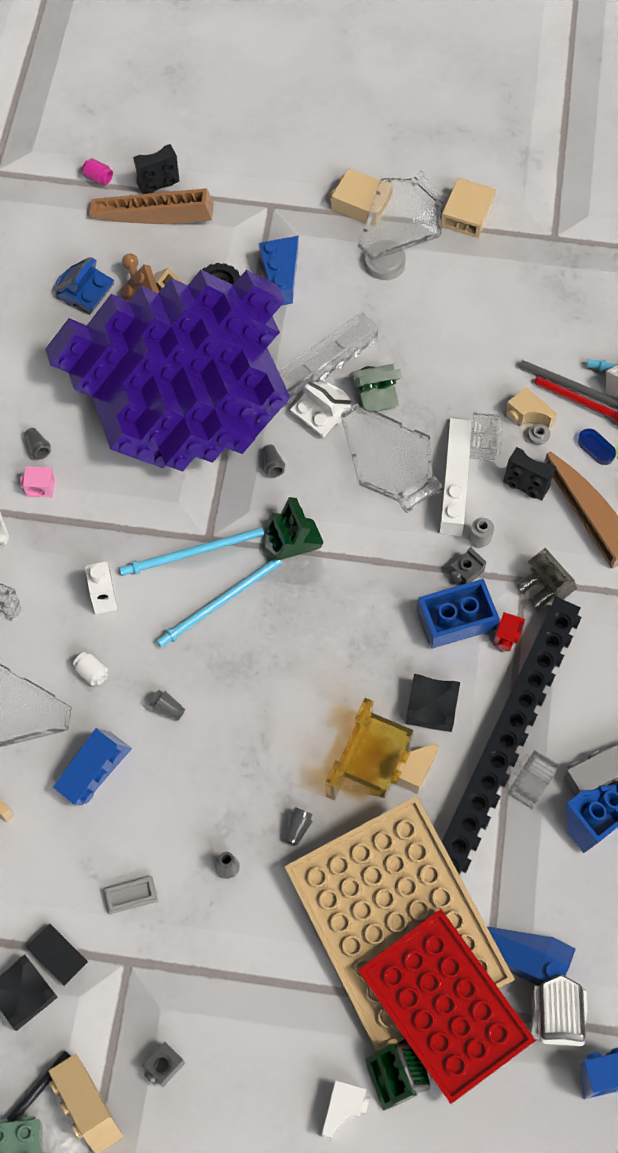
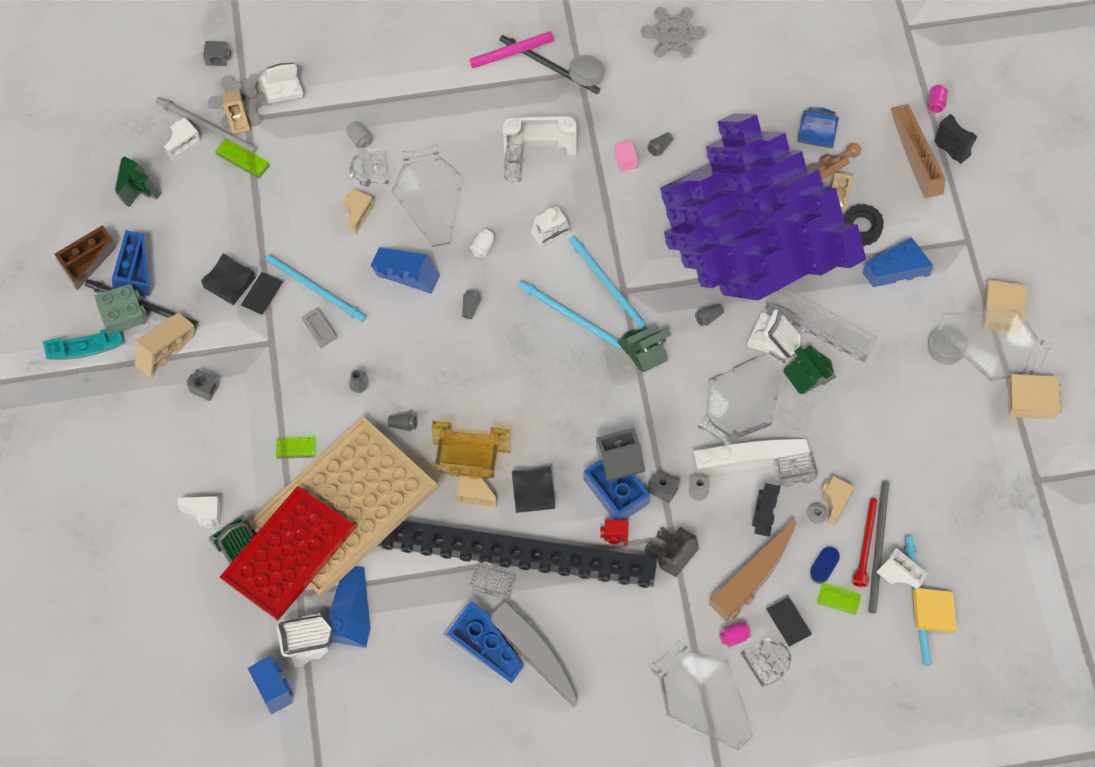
camera: 75 degrees right, 0 degrees up
(125, 846) = (353, 311): none -> medium azure bar
(288, 966) = (296, 447): none -> clear neon green tile
(433, 589) = (620, 454): none -> dark grey slope

